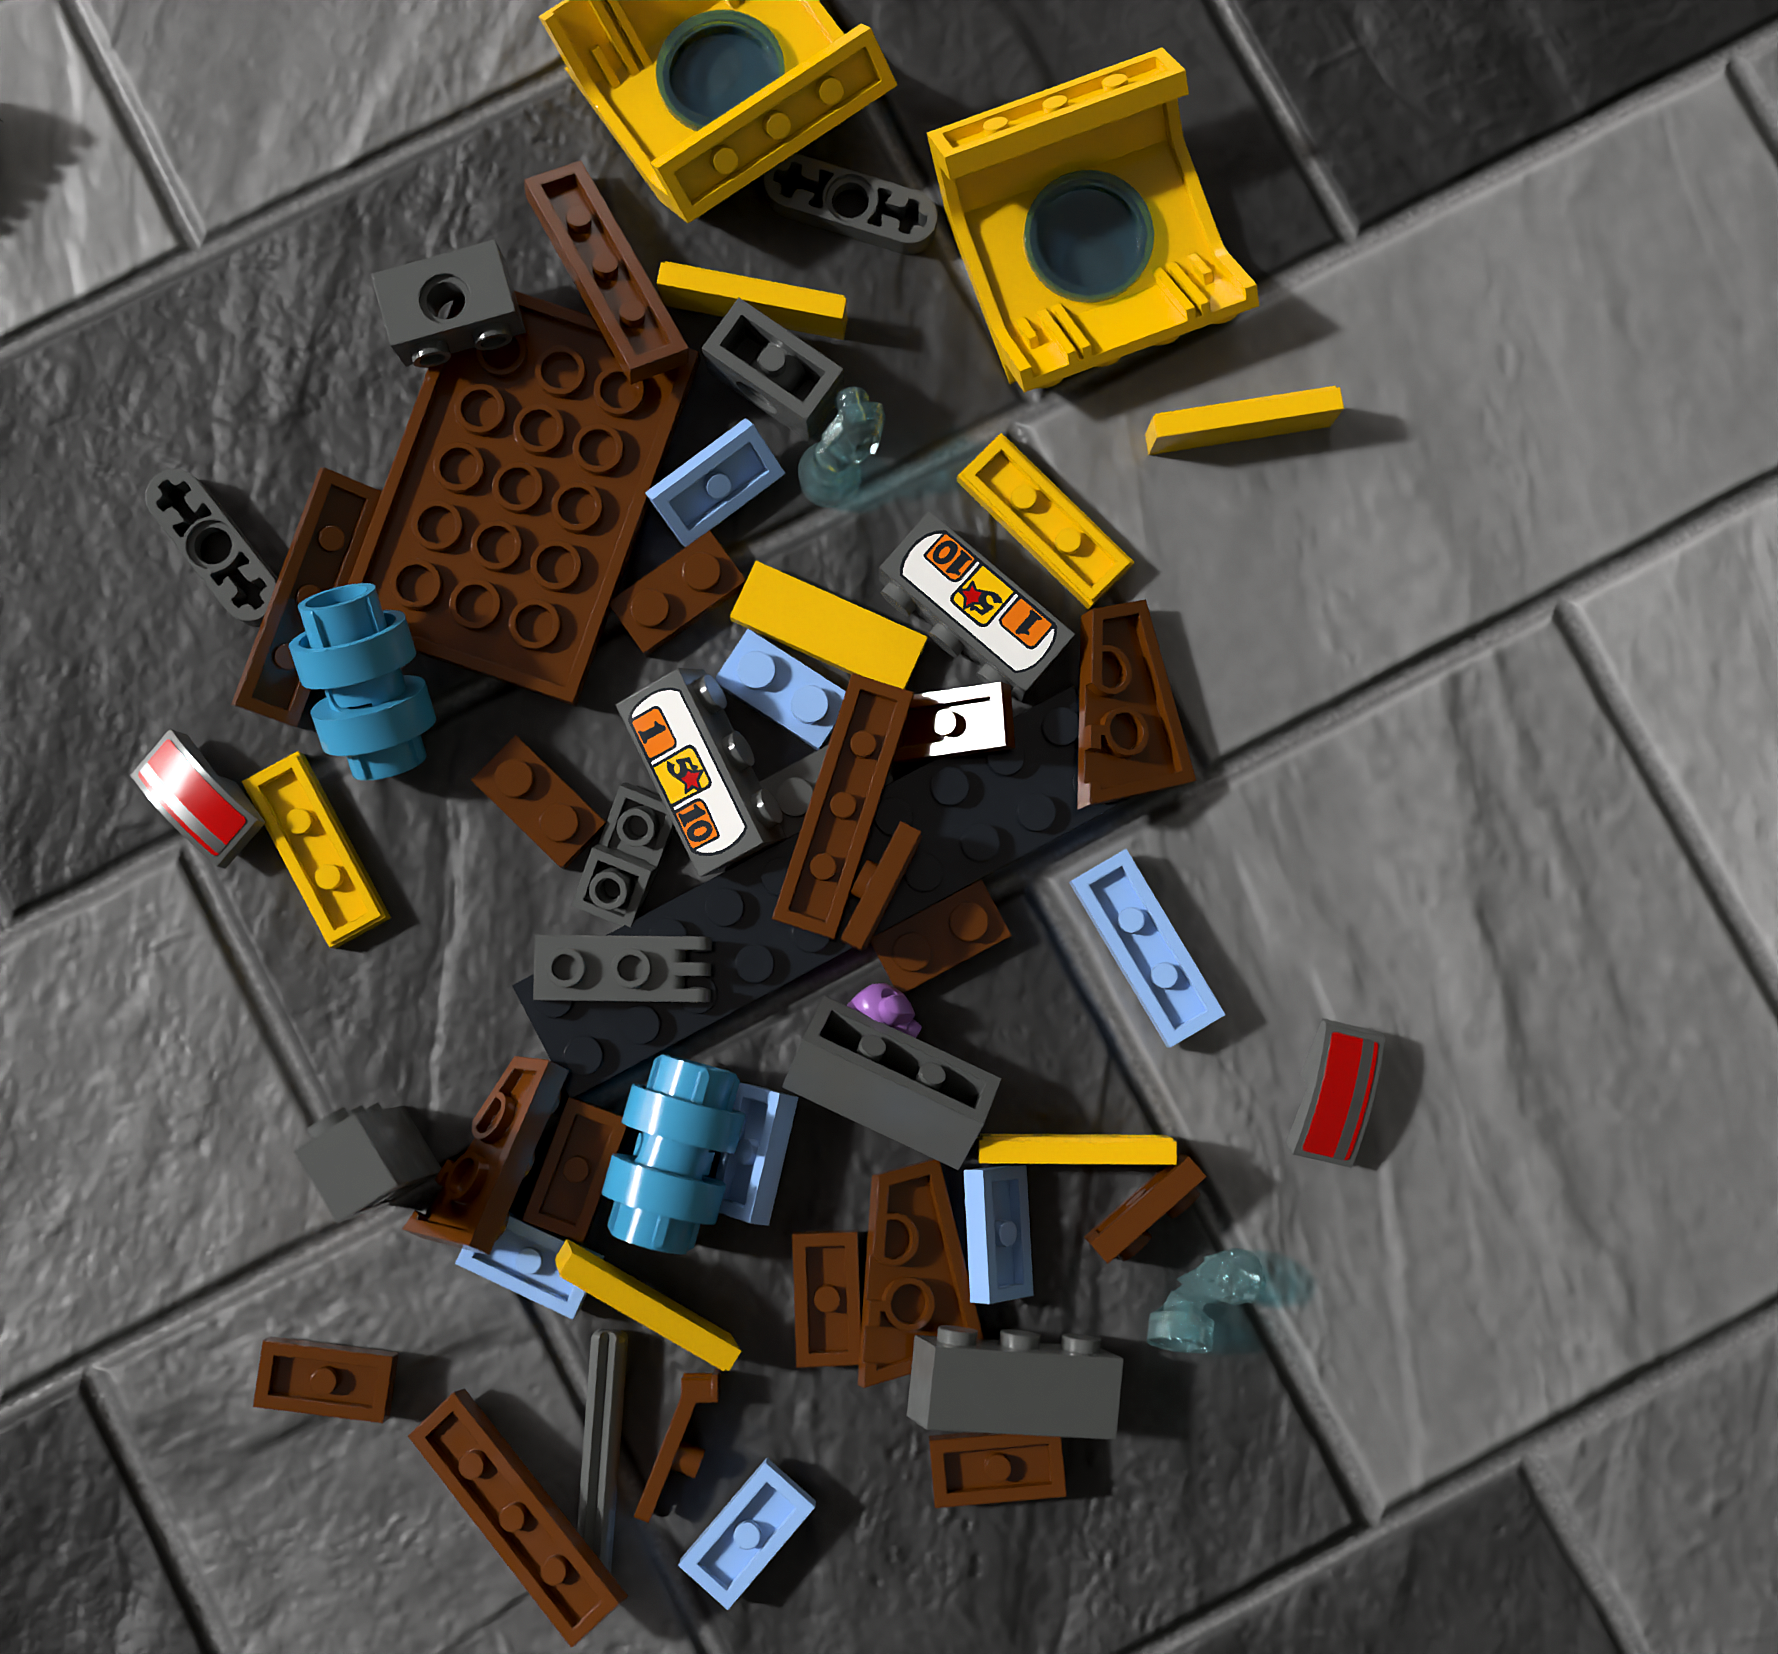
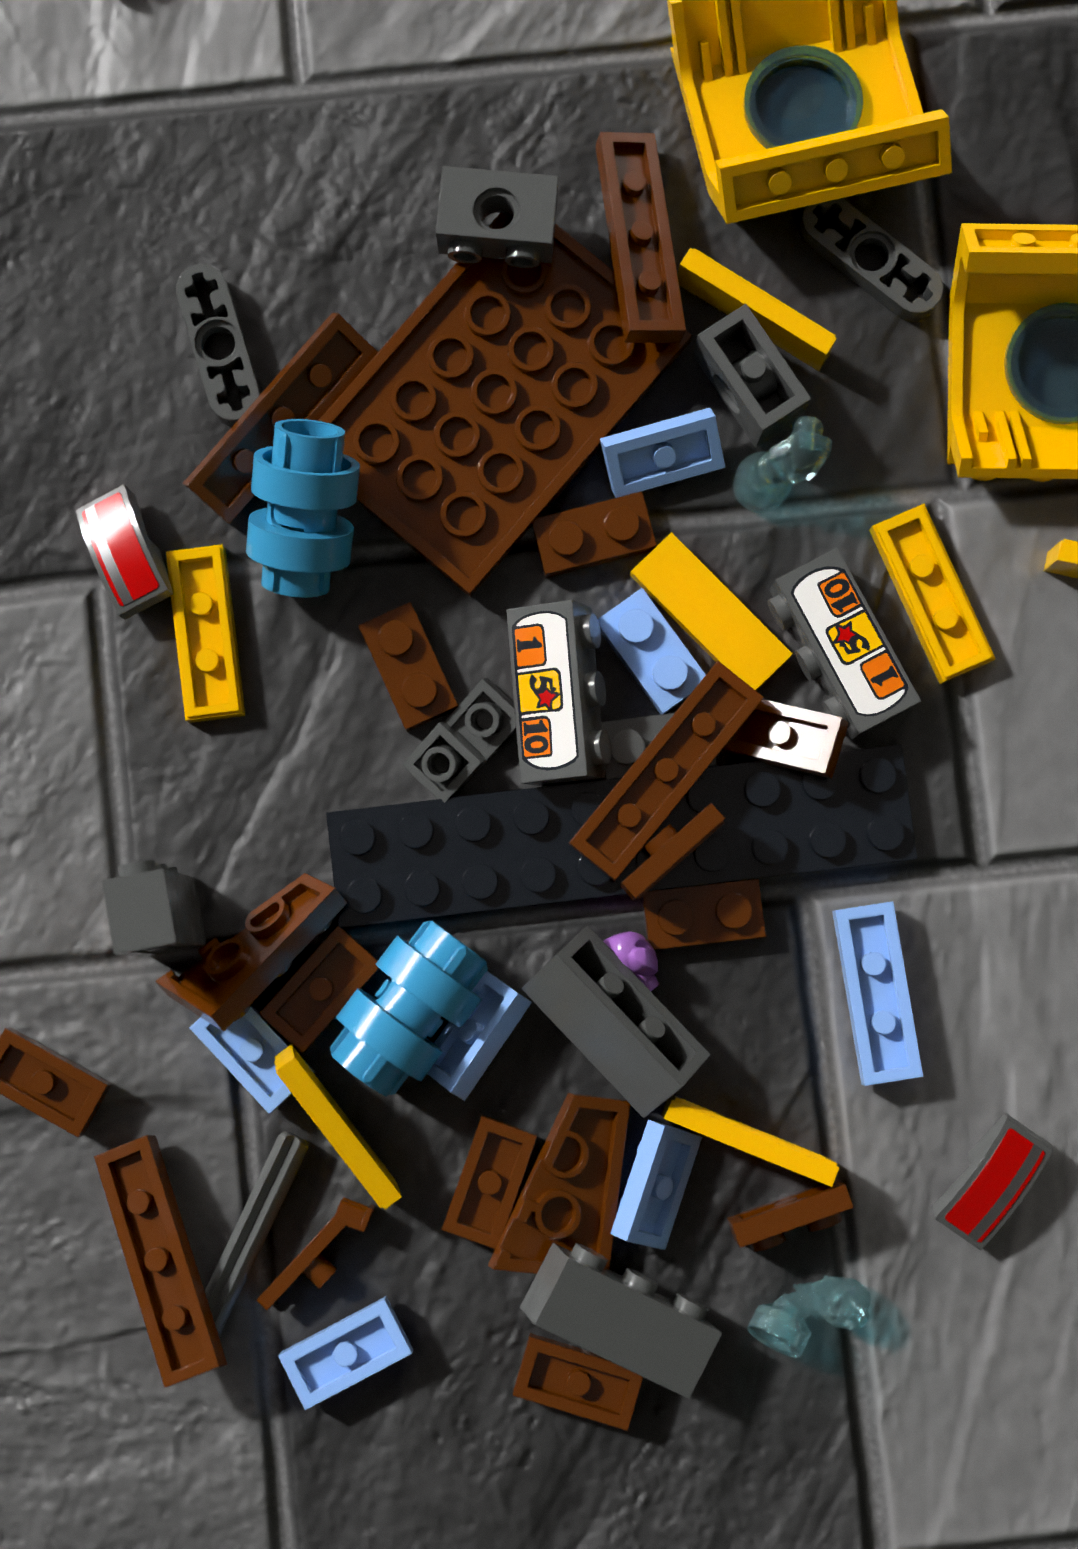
camera: 25 degrees right, 0 degrees up
(618, 968) = (423, 833): dark grey hinge -> none
(1126, 710) = (940, 783): reddish brown wing -> none

